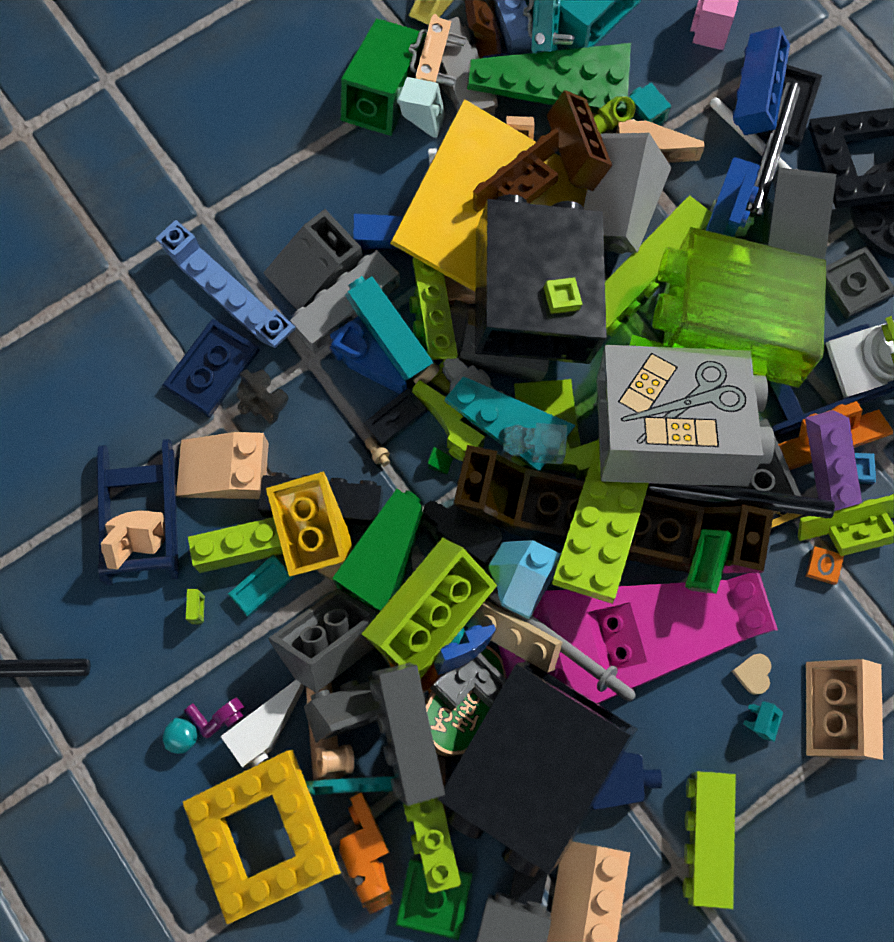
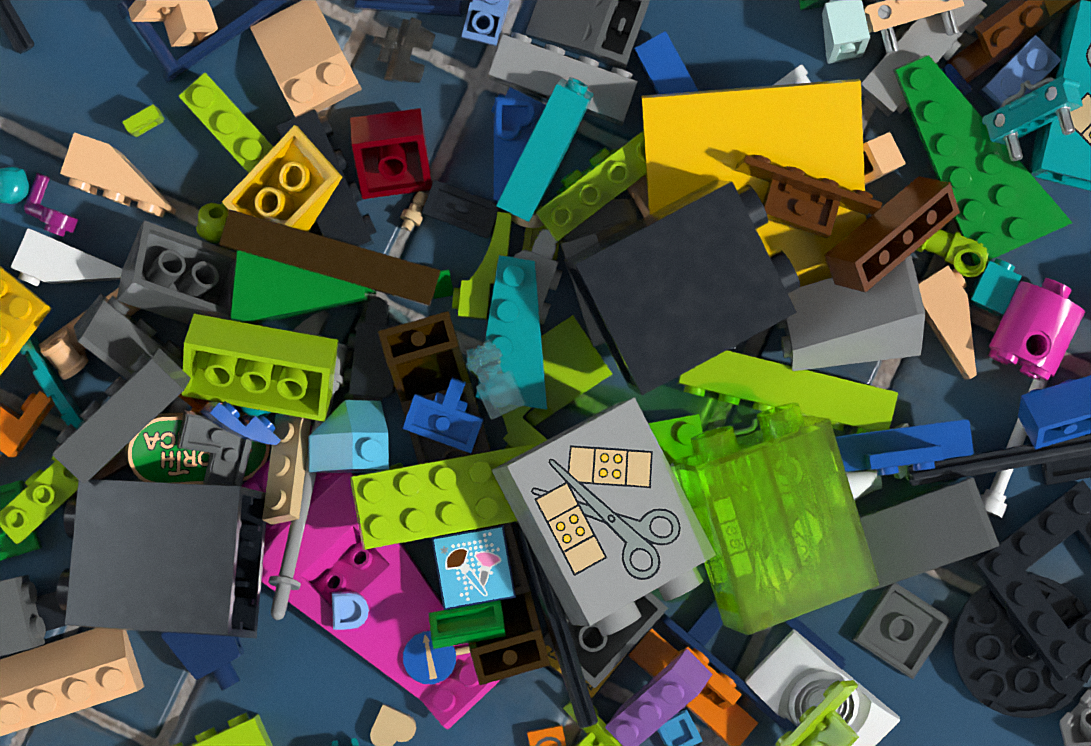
camera: 60 degrees right, 15 degrees up
(217, 648) = (100, 166): none -> light nougat slope
(260, 586) = (204, 173): teal tile -> none
(300, 595) = (212, 221): none -> lime piece
(326, 442) = (391, 153): none -> dark red slope
(377, 512) = (329, 257): none -> dark brown tile
(543, 495) = (444, 418): none -> blue hinge
(562, 295) = (661, 324): lime tile -> none
(649, 651) = (349, 610): none -> light blue tile
(667, 535) = (473, 567): none -> medium azure tile
(693, 91) = (1042, 317): none -> dark pink cylinder
(716, 612) = (429, 664): none -> blue piece

